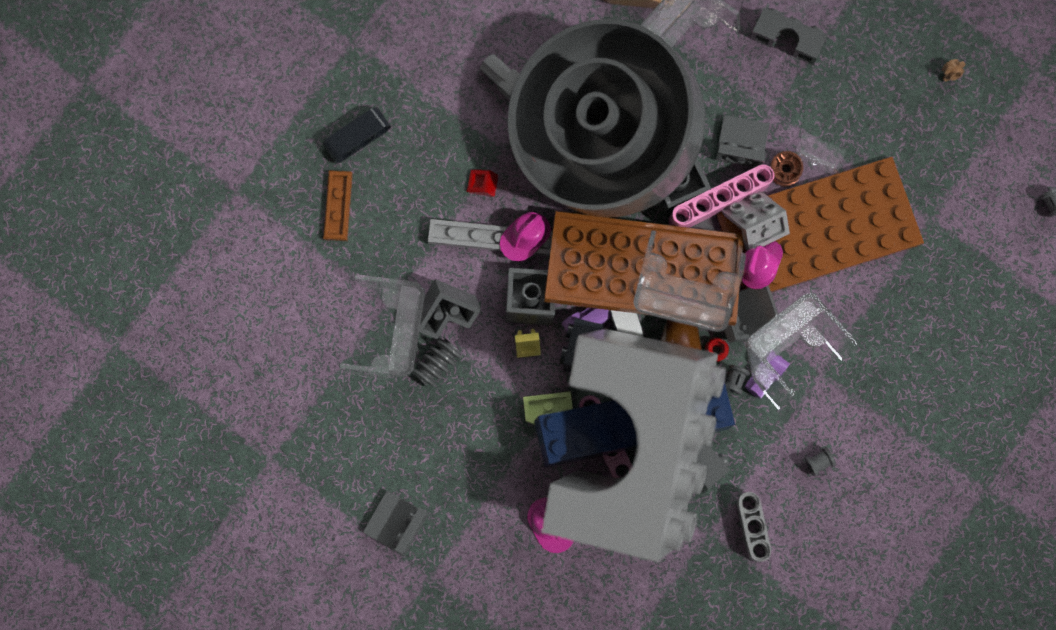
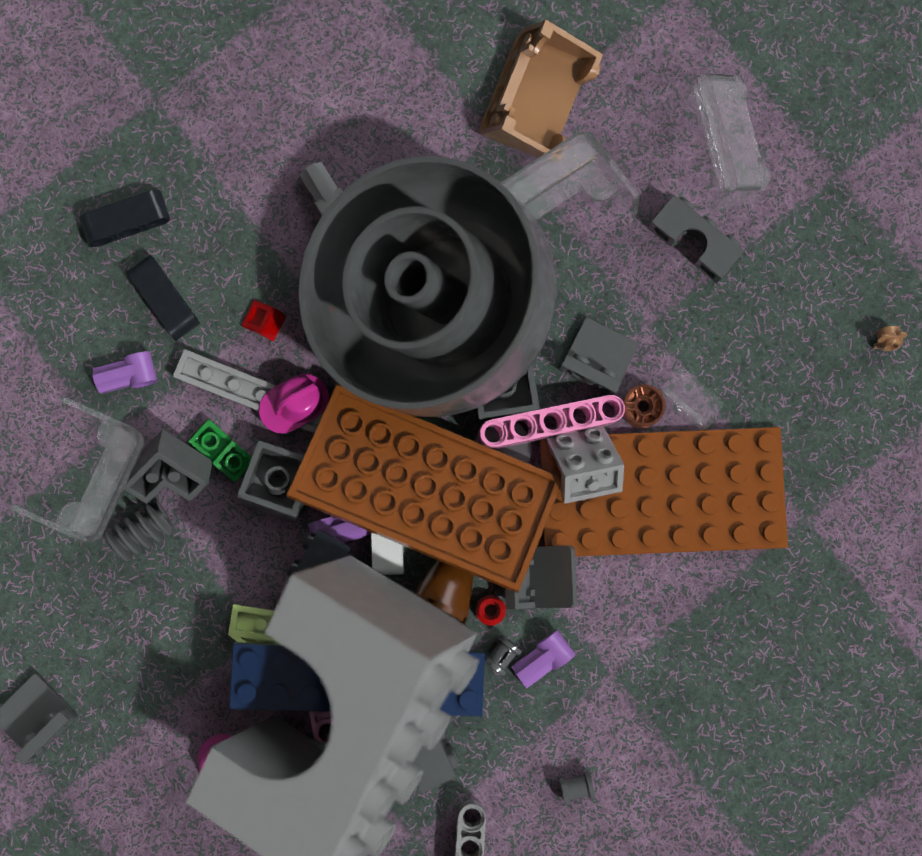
camera: 15 degrees right, 5 degrees up
(338, 206) = (78, 300): dark orange tile -> none
(396, 246) = (133, 372): none -> medium lavender piece
(403, 185) = (163, 297): none -> black beam
(482, 287) = (220, 449): none -> green slope
(527, 344) = (258, 539): light yellow tile -> none
(685, 299) = (460, 543): clear windscreen -> none
(762, 265) = (573, 524): dark pink piece -> none
(803, 319) = (609, 606): clear windscreen -> none

